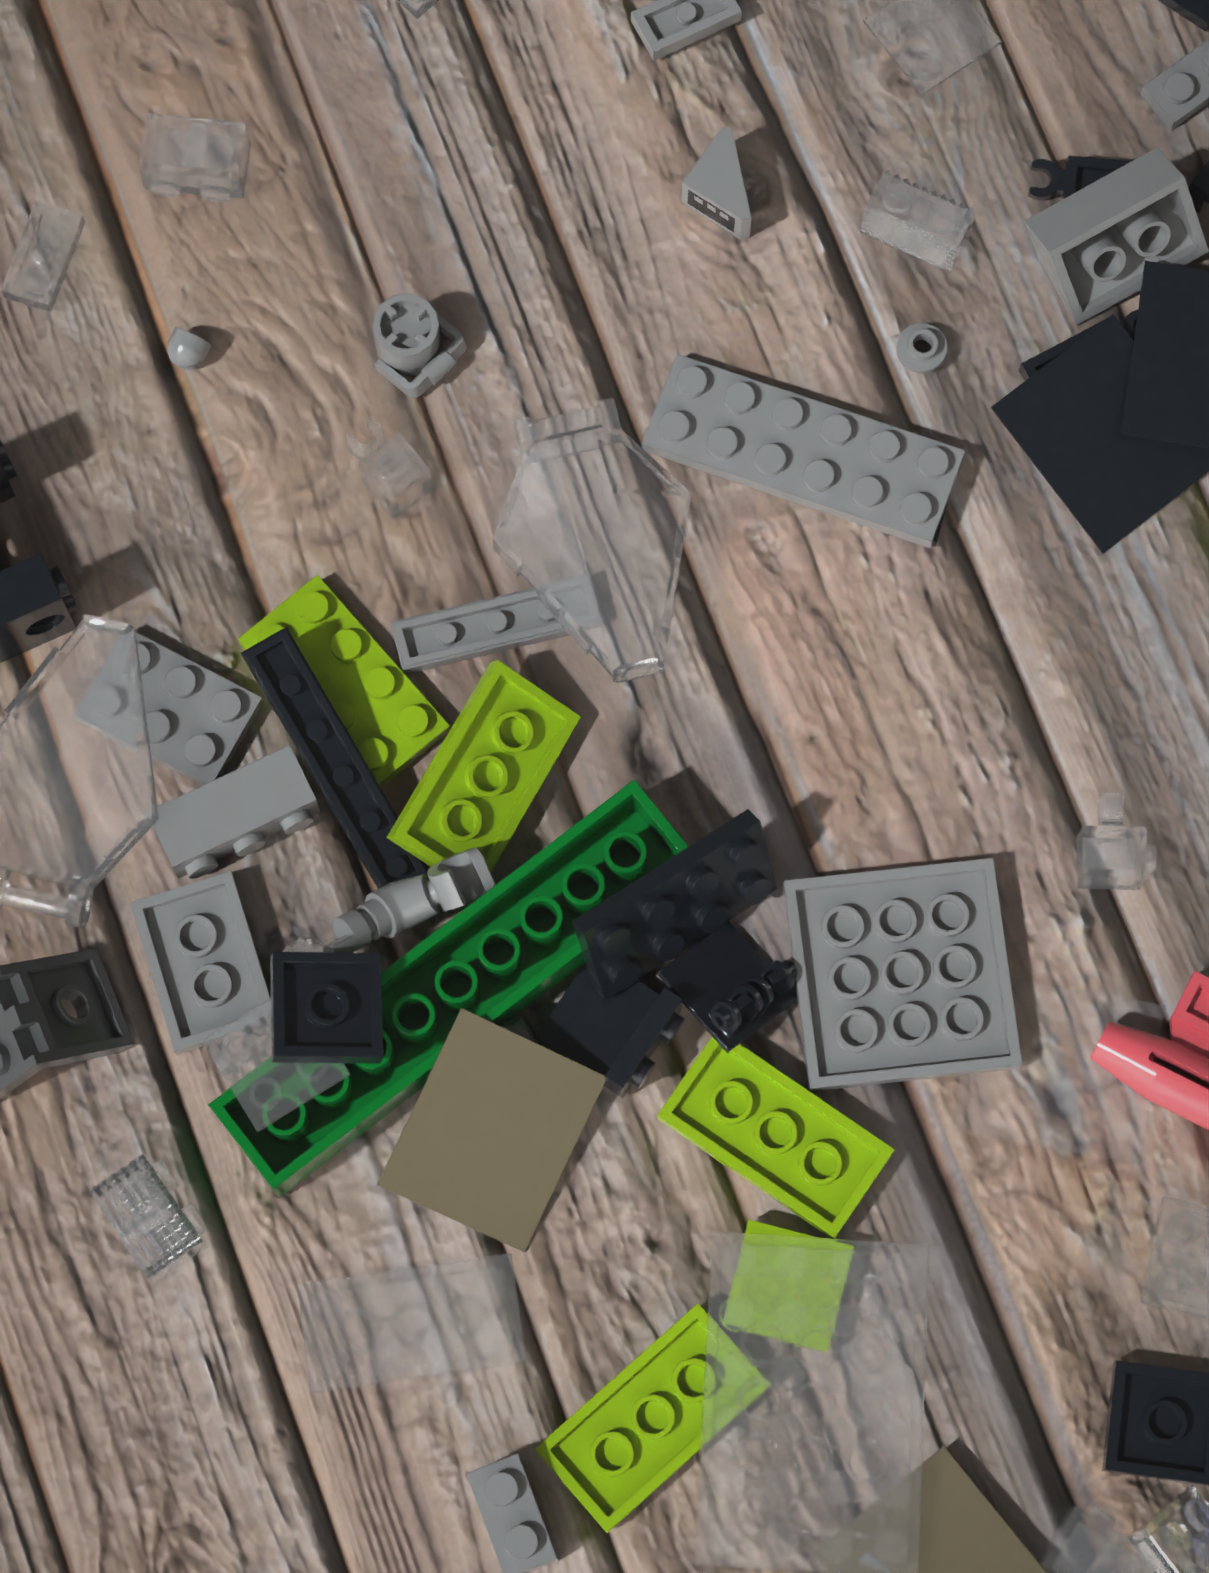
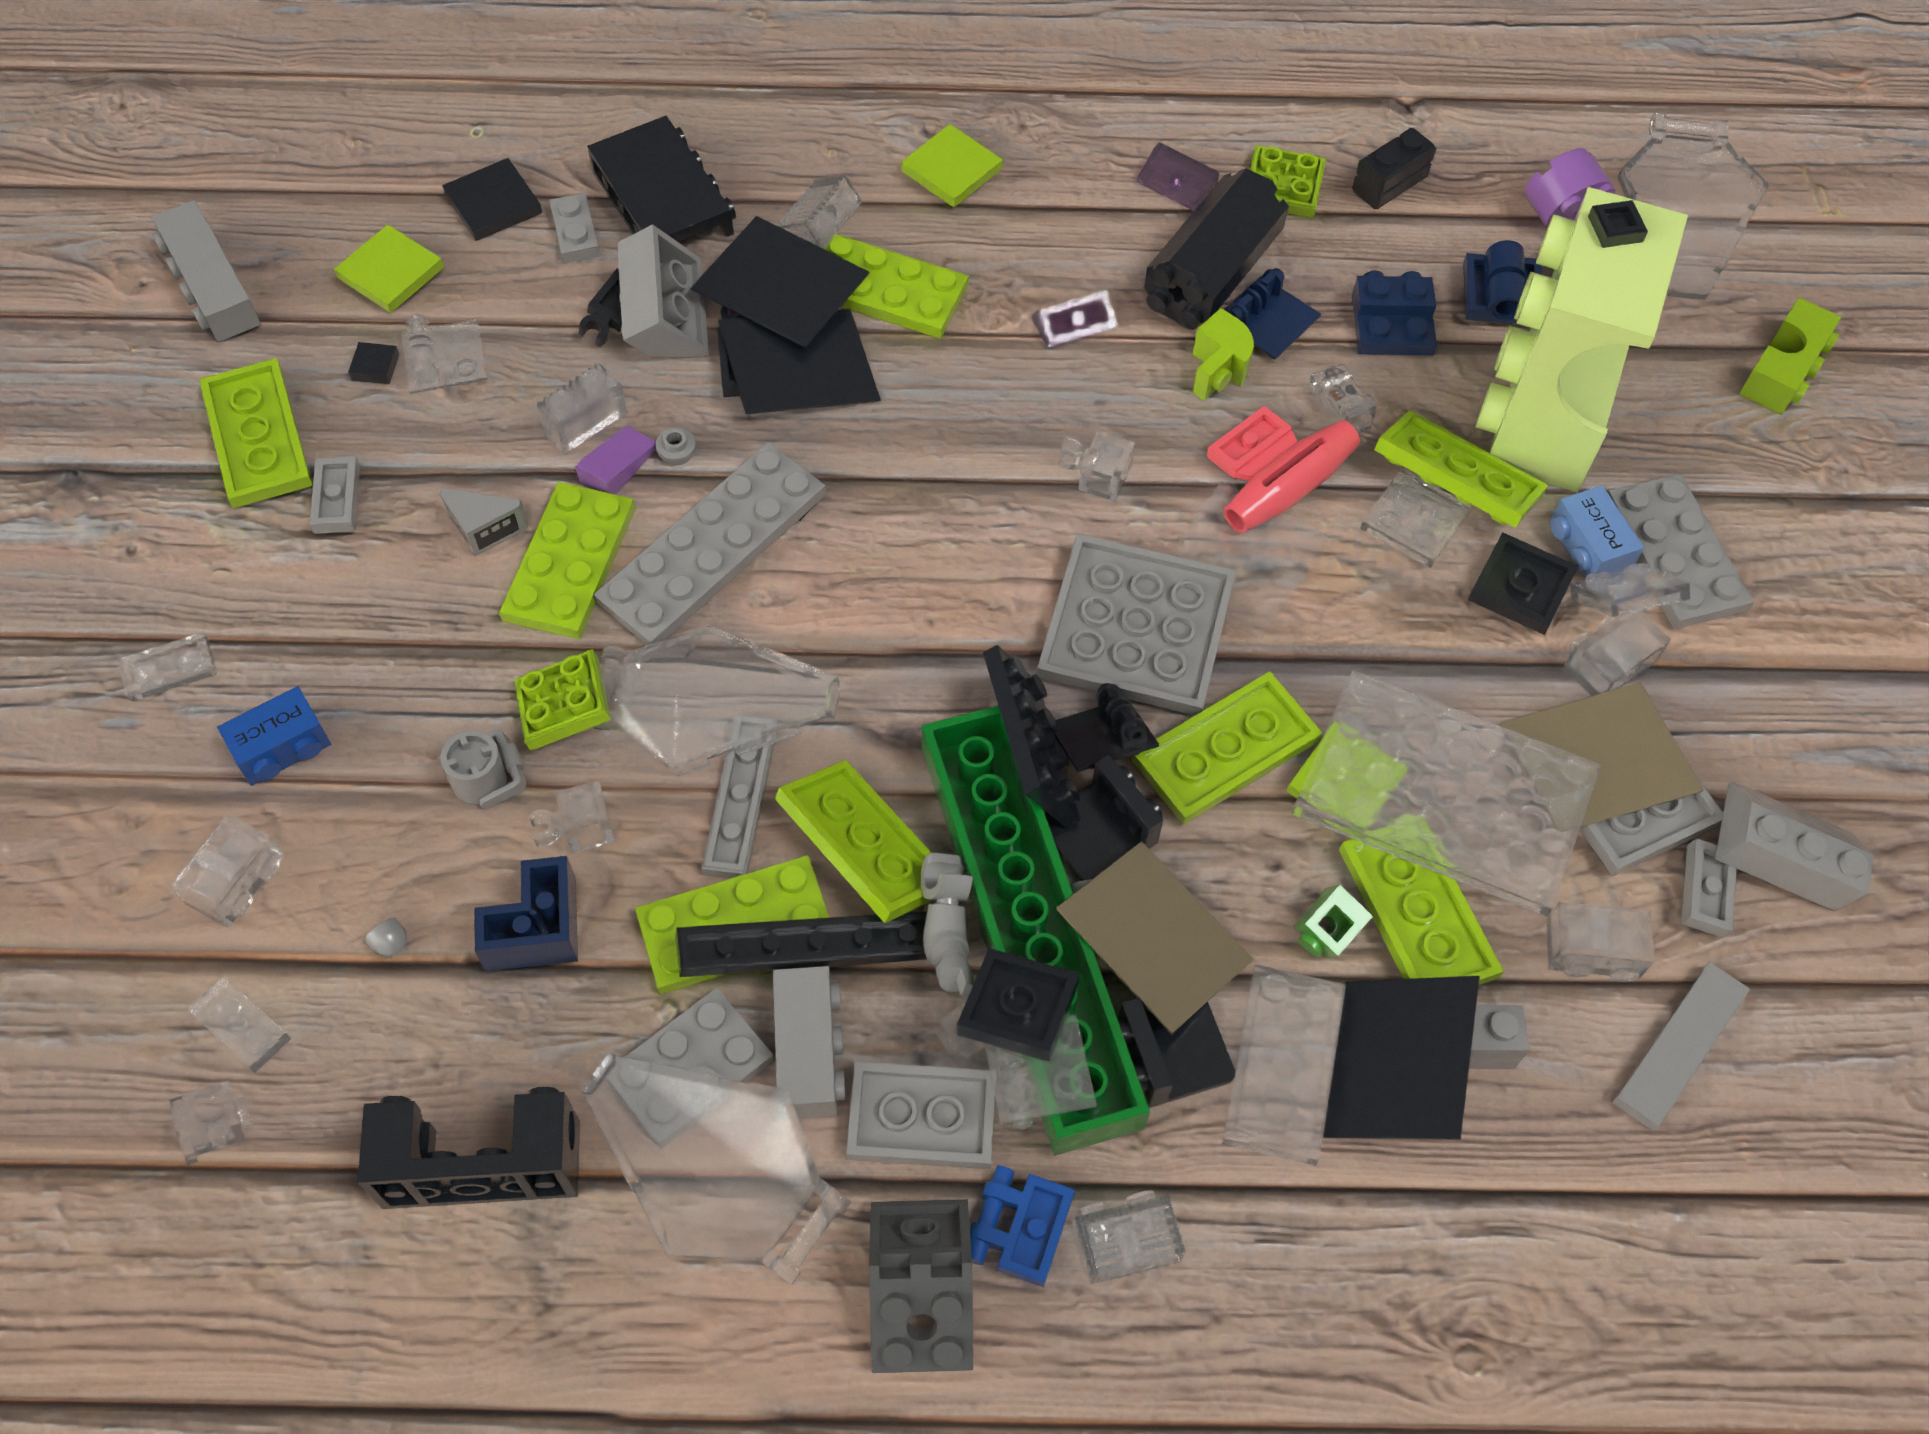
camera: 70 degrees left, 15 degrees down
(126, 1122) = (1034, 1230): none -> blue plate
(259, 492) = (538, 928): none -> dark blue brick
(362, 118) = (274, 736): none -> blue brick
(364, 1216) = (1175, 1063): none -> black bracket
(448, 1442) = (1402, 1059): none -> black piece
(526, 384) = (562, 699): none -> lime tile
(573, 1330) = (1345, 920): none -> brick
(716, 304) = (568, 560): none -> lime plate
(872, 292) = (615, 460): none -> medium lavender slope

